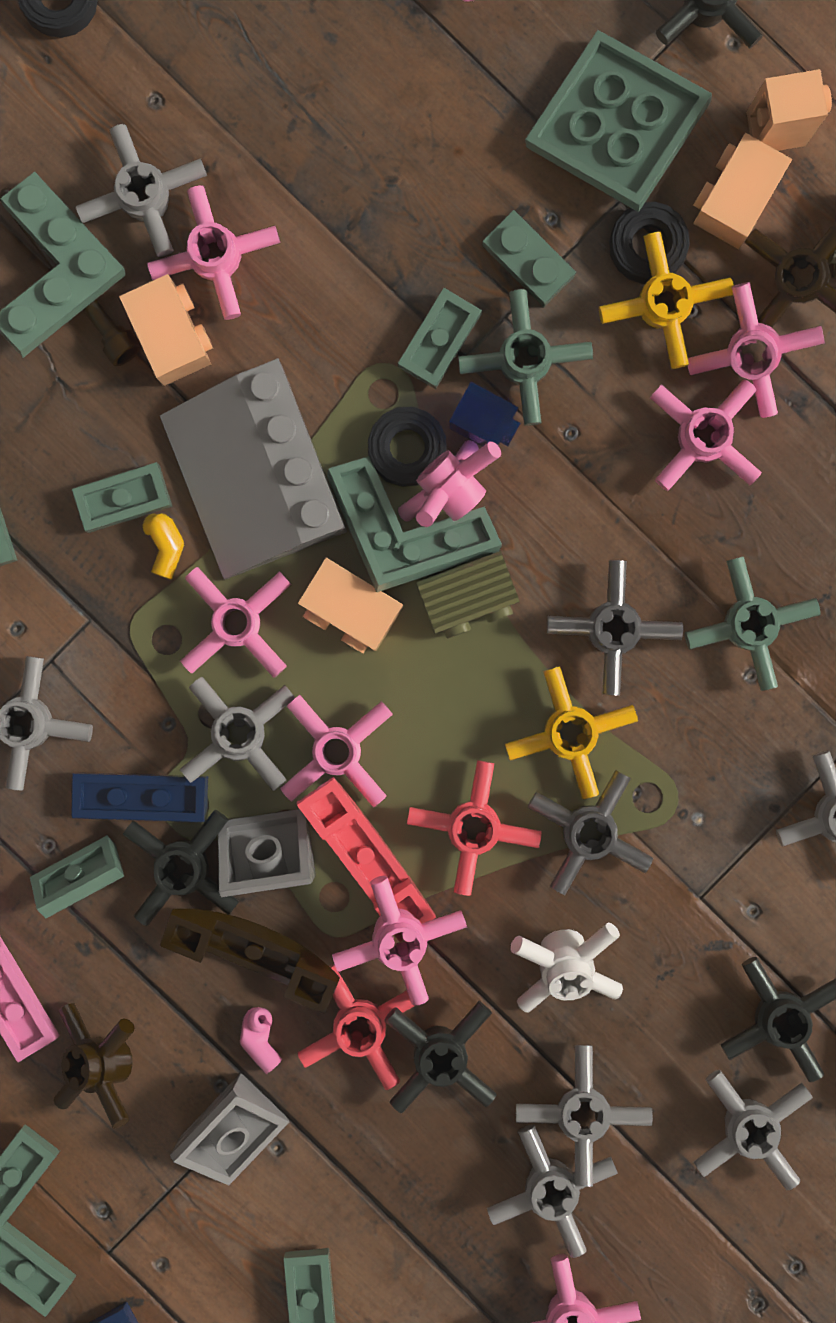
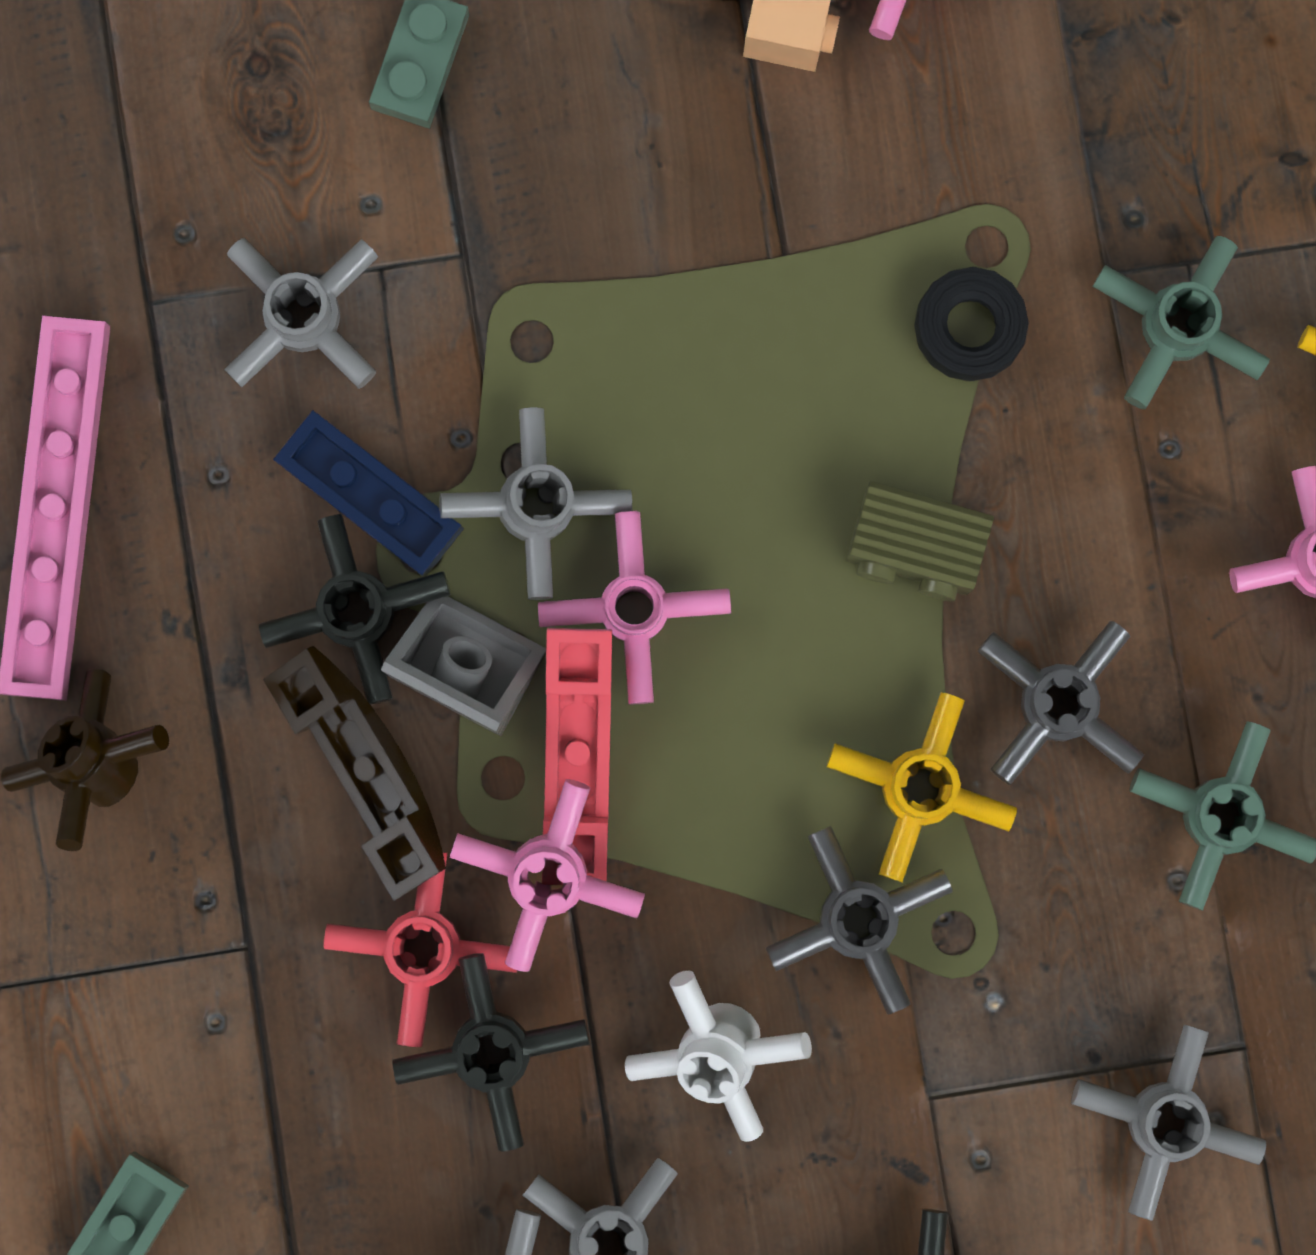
camera: 30 degrees right, 5 degrees down
(76, 877) = (227, 531): sand green plate -> none
(122, 497) = (603, 143): sand green plate -> none
(168, 541) = (618, 231): yellow arm -> none
(222, 608) = (627, 350): bright pink bar -> none
(229, 1132) = (178, 962): light grey slope -> none
(252, 470) = (775, 221): light grey slope -> none
(255, 1037) = (290, 871): bright pink arm -> none
(350, 605) = (773, 453): light nougat brick -> none
(401, 556) = (875, 440): sand green plate -> none
(439, 338) = (1098, 230): sand green plate -> none
(450, 484) = (993, 397): bright pink bar -> none
(484, 417) = (1084, 355): clear blue brick -> none
(484, 841) = (753, 815): coral bar -> none
(528, 258) = (1265, 216): sand green plate -> none

